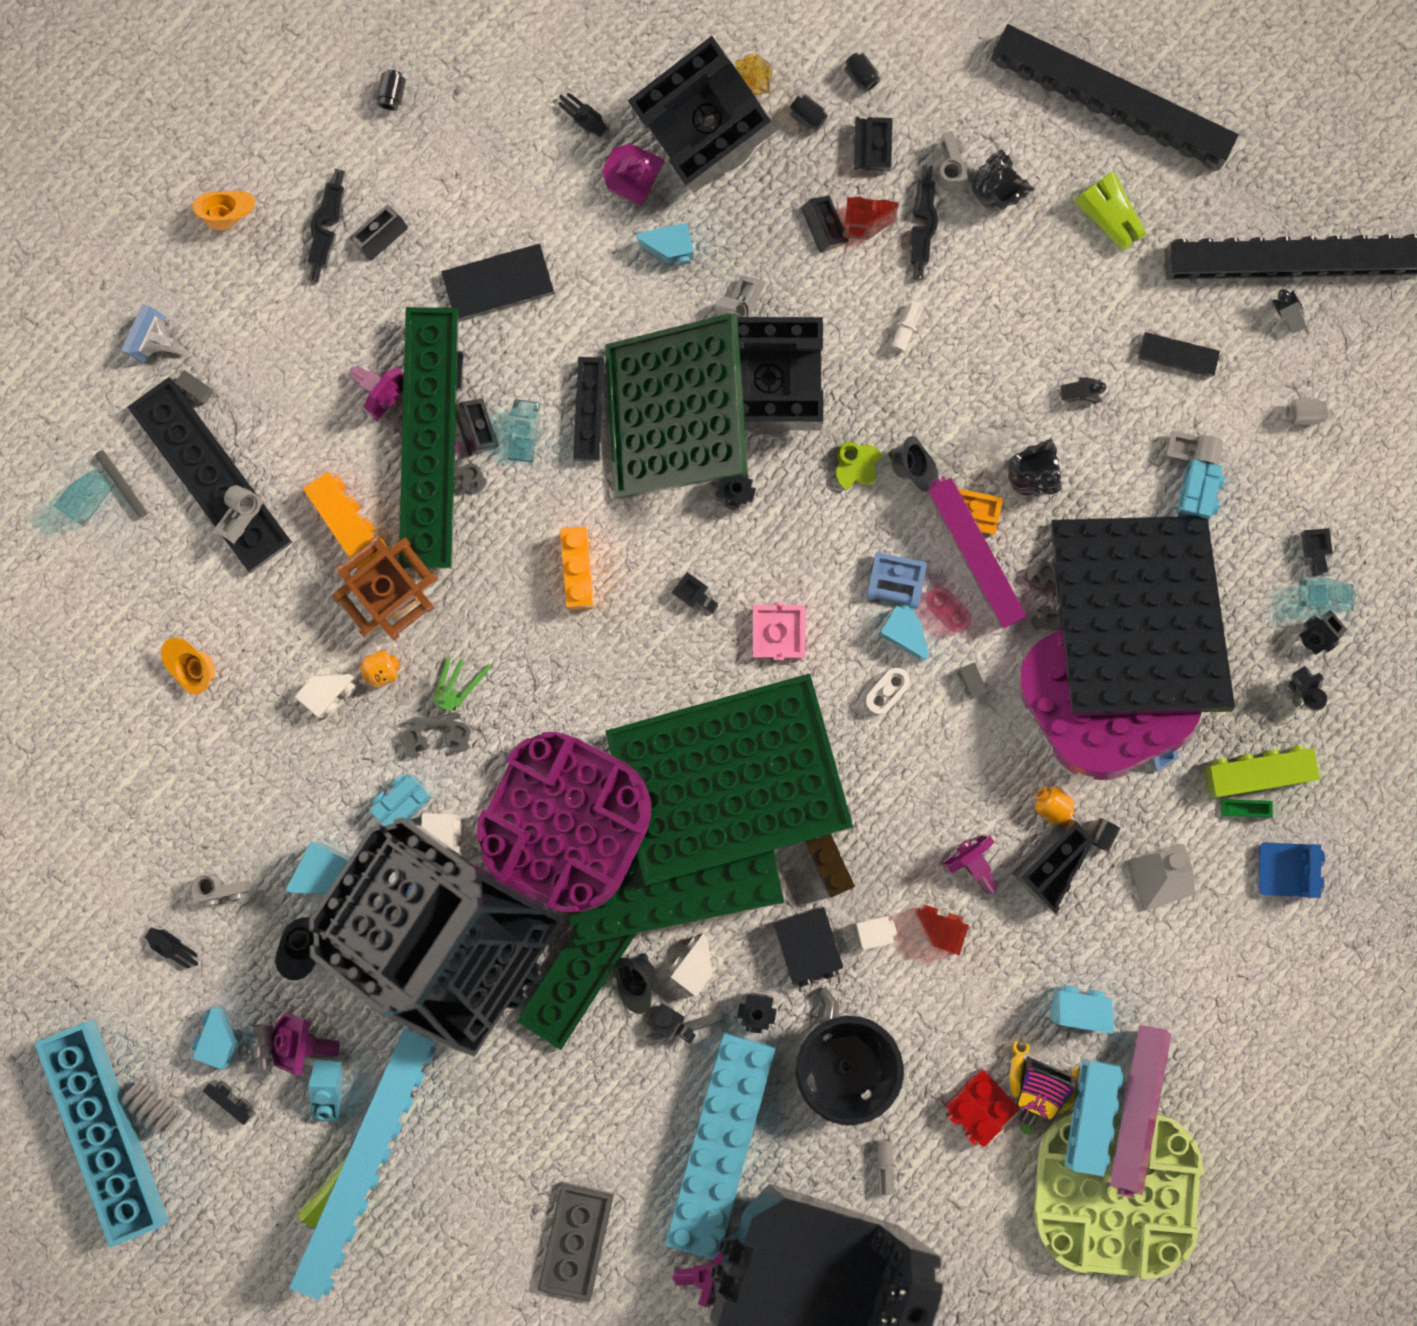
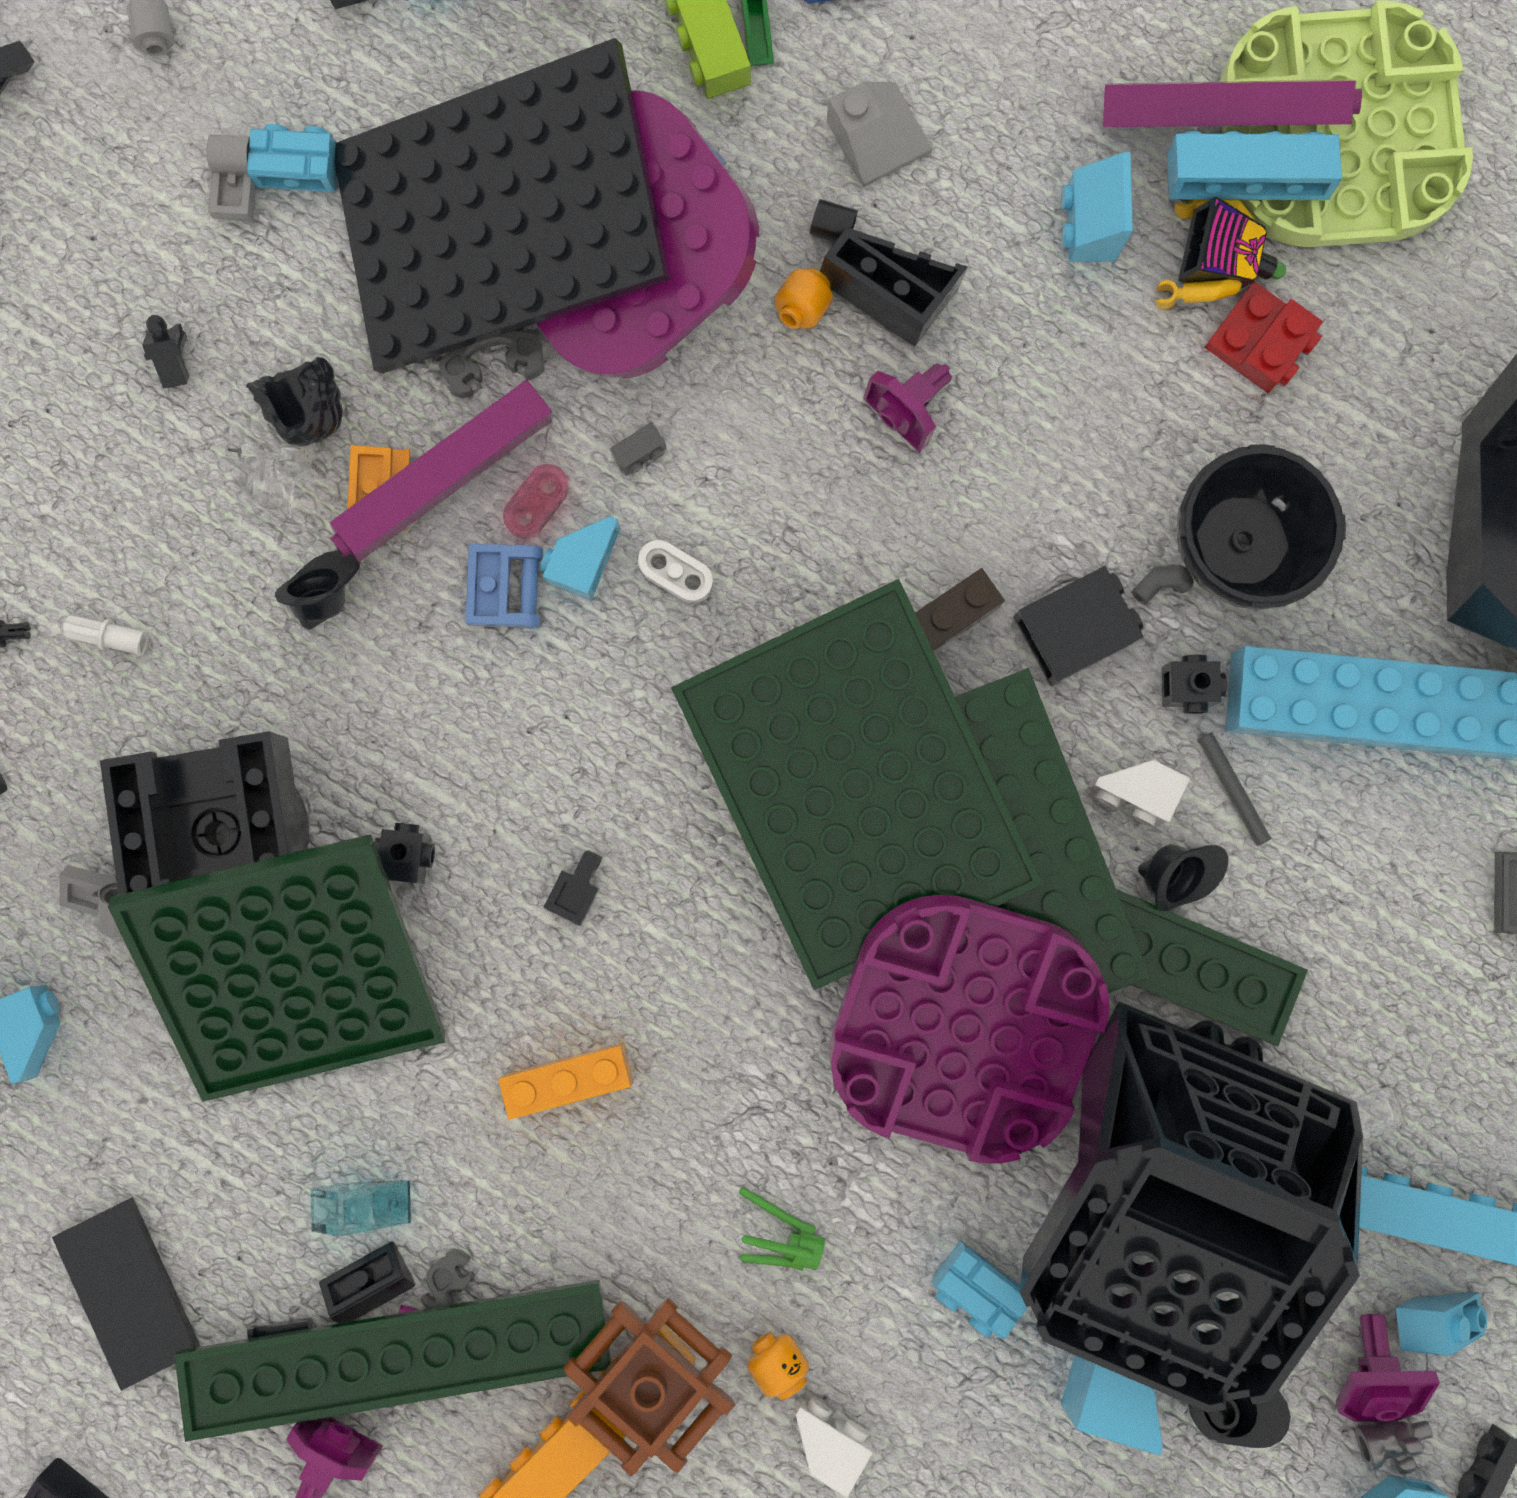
camera: 100 degrees left, 0 degrees up
(443, 827) = (1015, 1217): white slope -> none
(458, 732) = (876, 1289): dark grey helmet -> none
(588, 409) = (309, 1108): black plate -> none
(669, 1023) = (1235, 814): black plate -> none
(779, 631) = (612, 750): bright pink plate -> none
(860, 467) = (338, 670): lime plate -> none
(875, 932) = (1040, 529): white brick -> none
(885, 1166) = (1375, 460): light grey axle -> none
(942, 932) = (1020, 432): clear red slope -> none
(1178, 354) = (90, 223): black tile -> none

